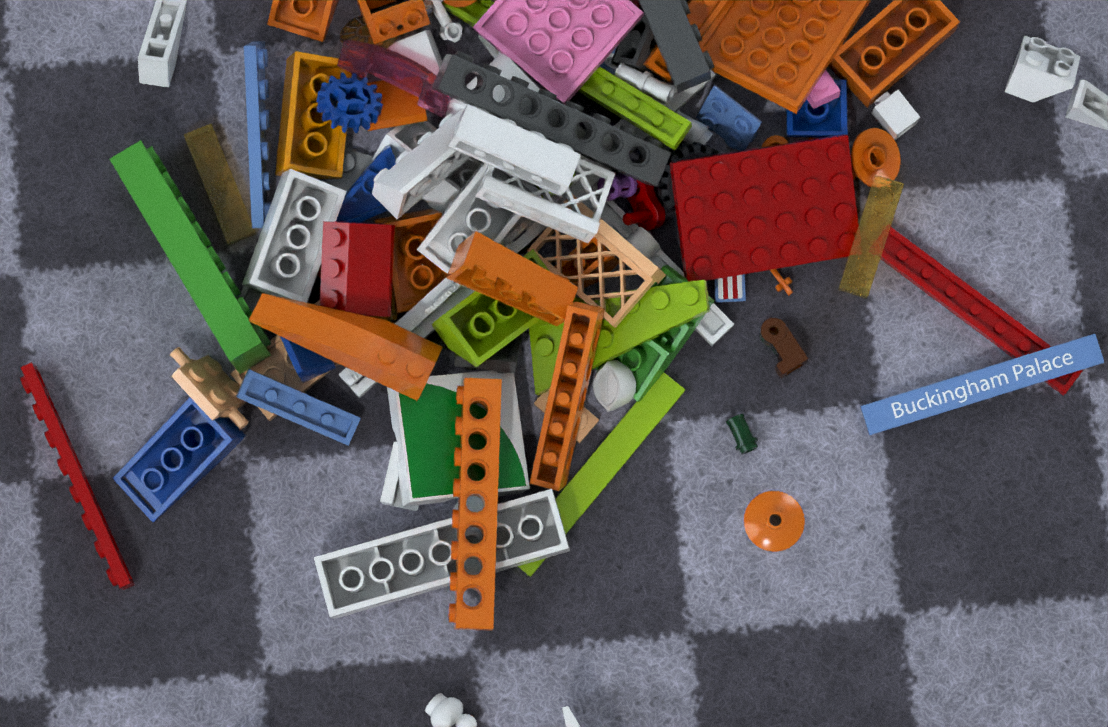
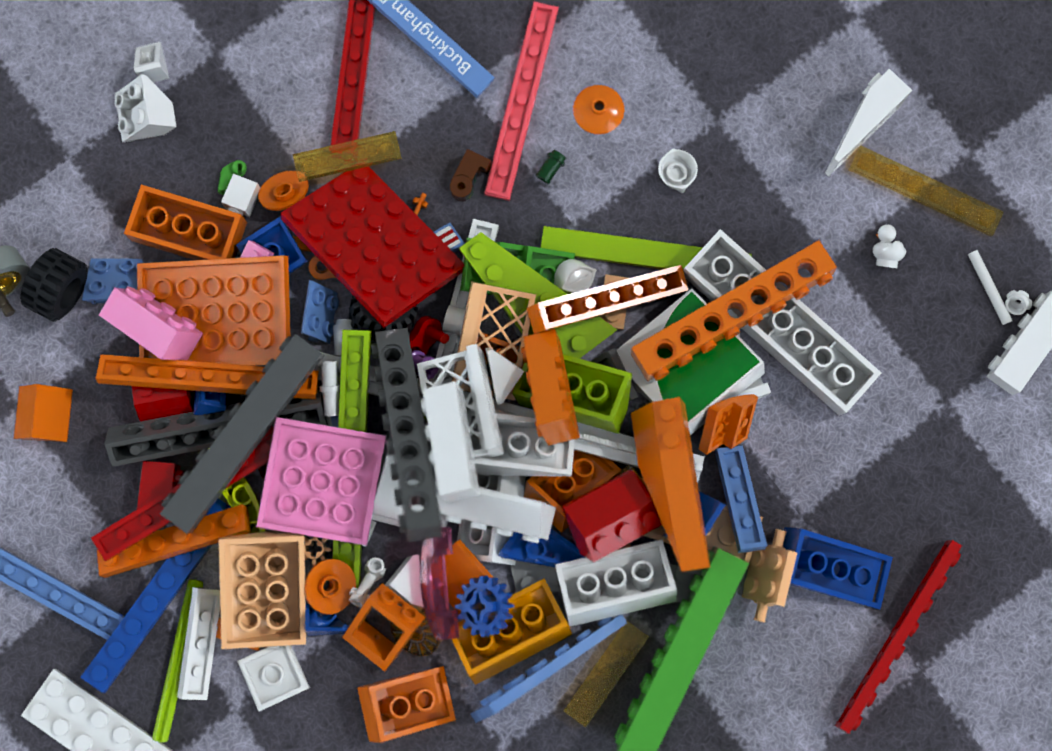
camera: 120 degrees left, 0 degrees up
(377, 440) = (728, 422): none -> orange slope
(555, 249) = (503, 374): none -> white slope
(660, 556) = (678, 169): none -> white hat
(830, 449) = (521, 101): none -> coral tile
(928, 119) = (237, 167): none -> bright green arm

